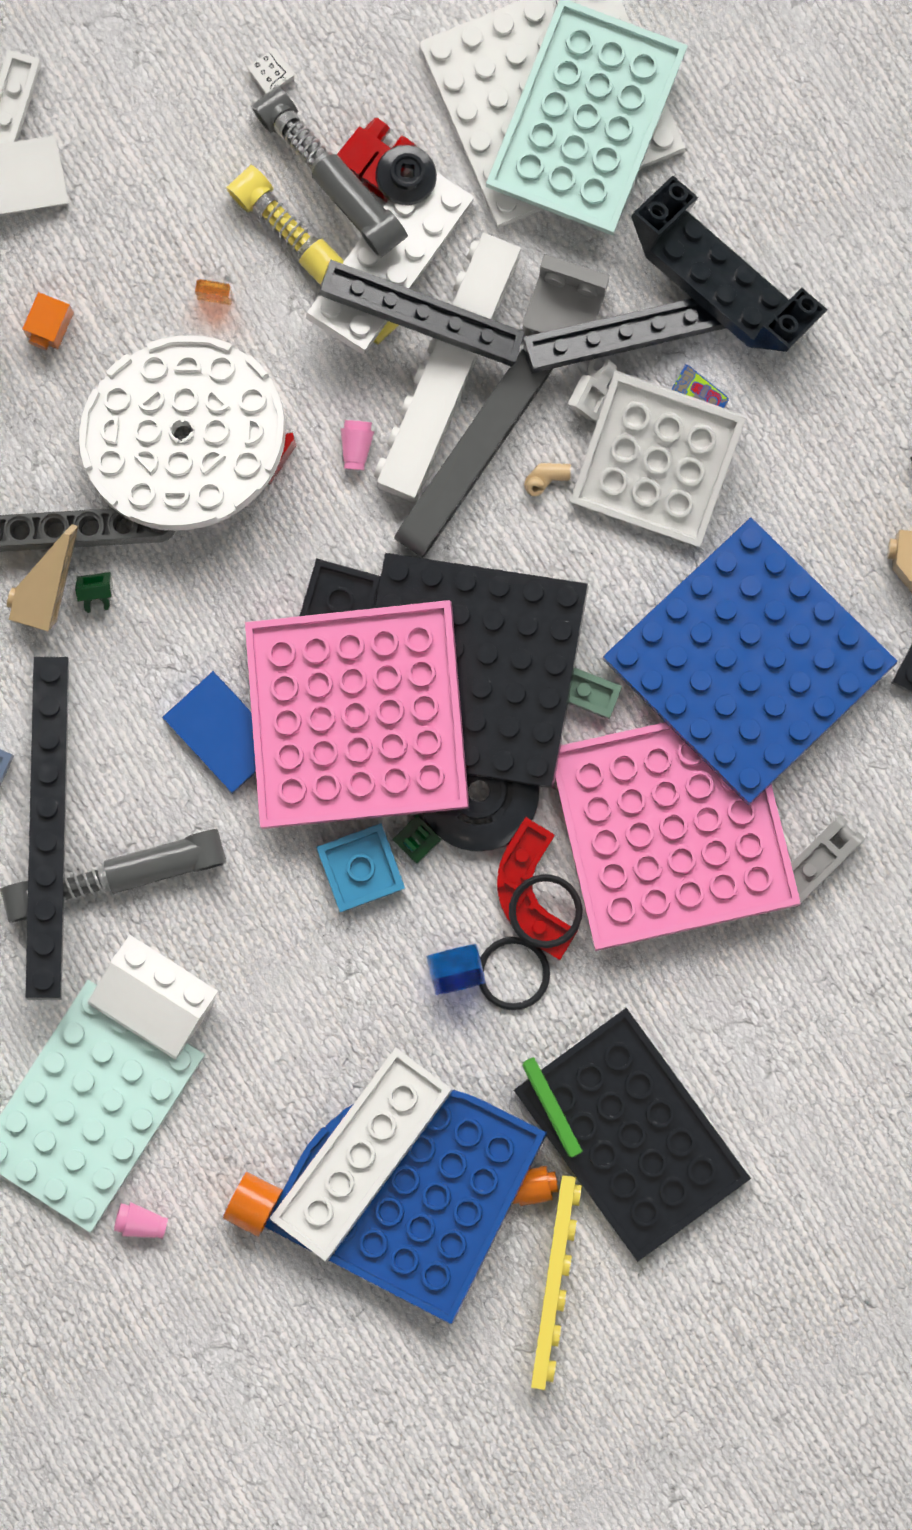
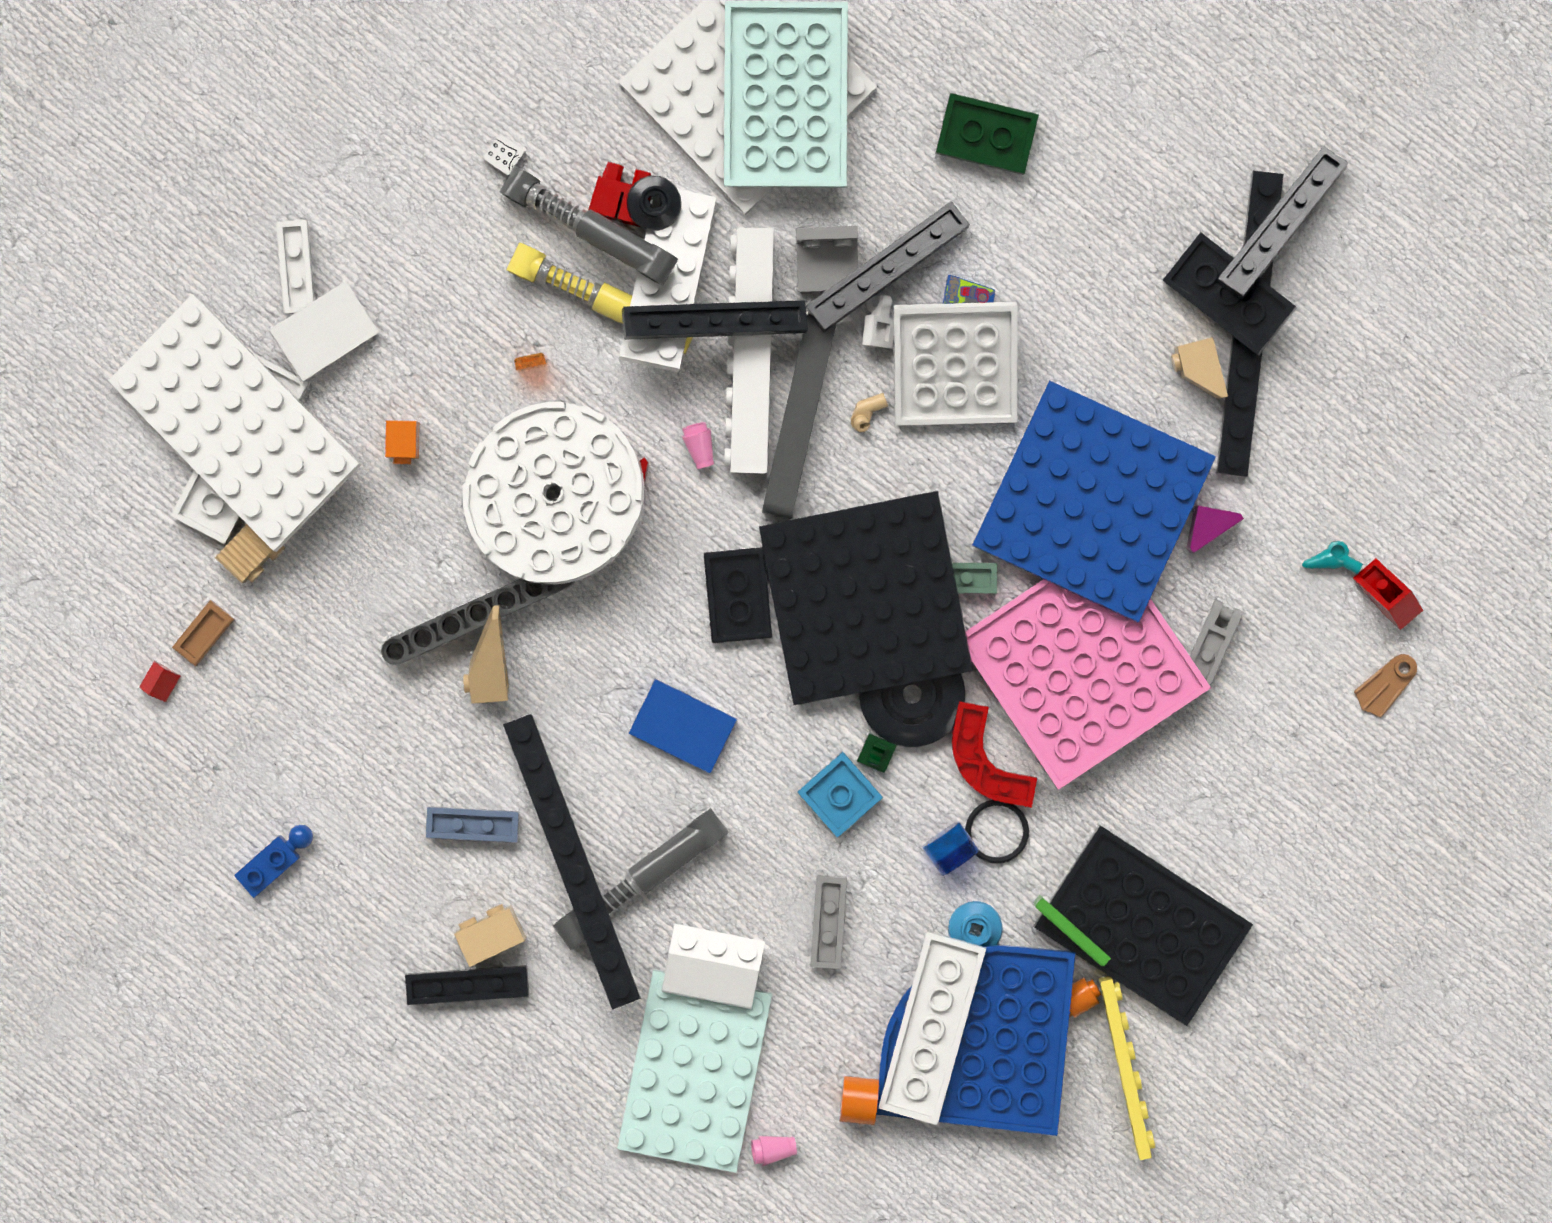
camera: 25 degrees left, 5 degrees up
(94, 587) = (530, 648): dark green tile -> none
(295, 1000) = (828, 922): none -> light grey plate
(356, 715) = (789, 672): bright pink plate -> none
(461, 1055) = (977, 913): none -> dark azure piece
(578, 911) = (1024, 751): black tyre -> none
(719, 276) = (949, 188): black slope -> none
(781, 237) = (987, 134): none -> dark green plate
(864, 732) = (1208, 524): none -> magenta slope

